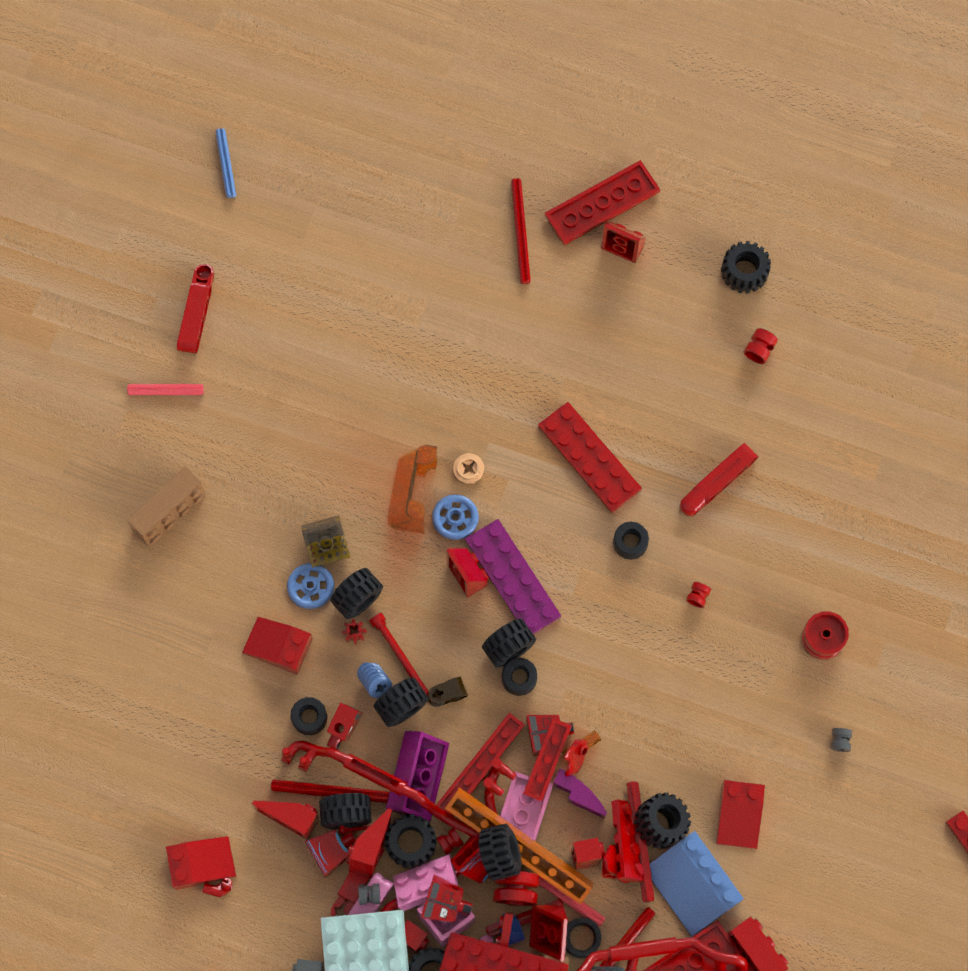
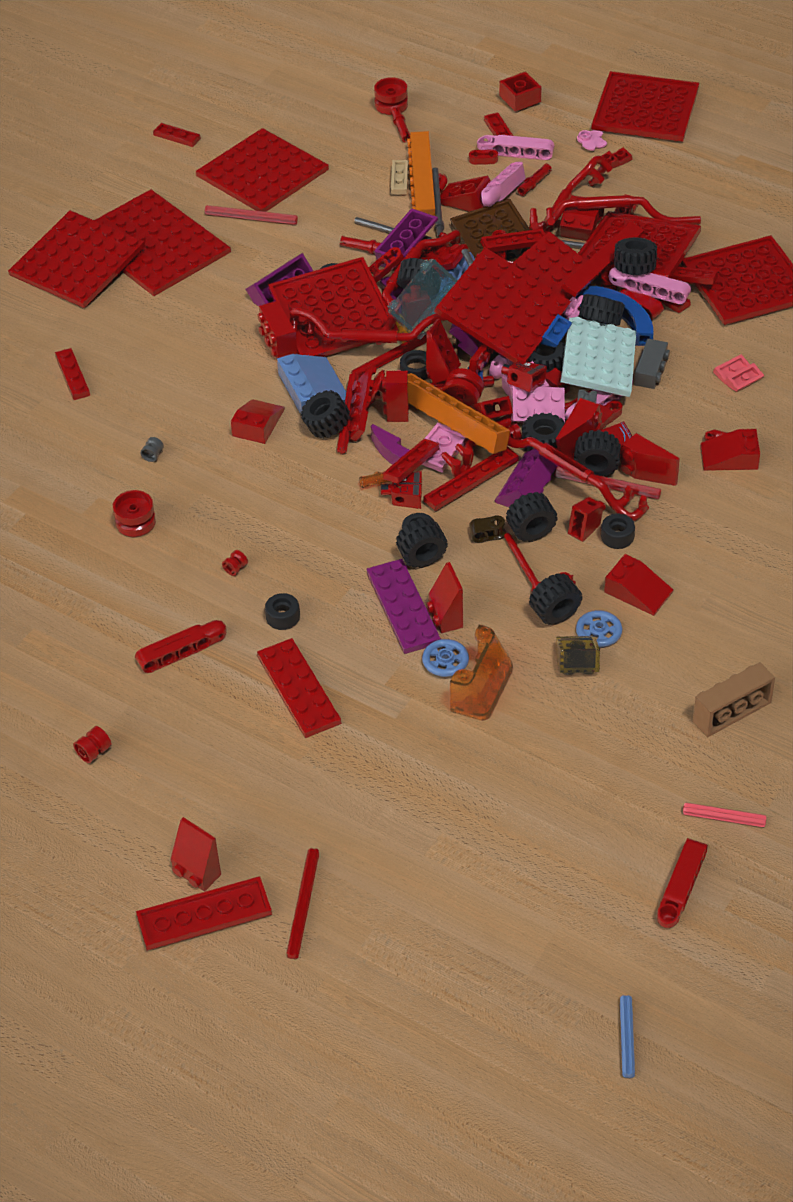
camera: 165 degrees left, 25 degrees down
(374, 679) = (551, 532): medium blue piece -> none
(467, 460) = (421, 688): light nougat gear -> none
(499, 852) = (470, 385): black tyre -> none
(575, 756) = (382, 464): red plate -> none
(749, 253) = (80, 829): black tyre -> none

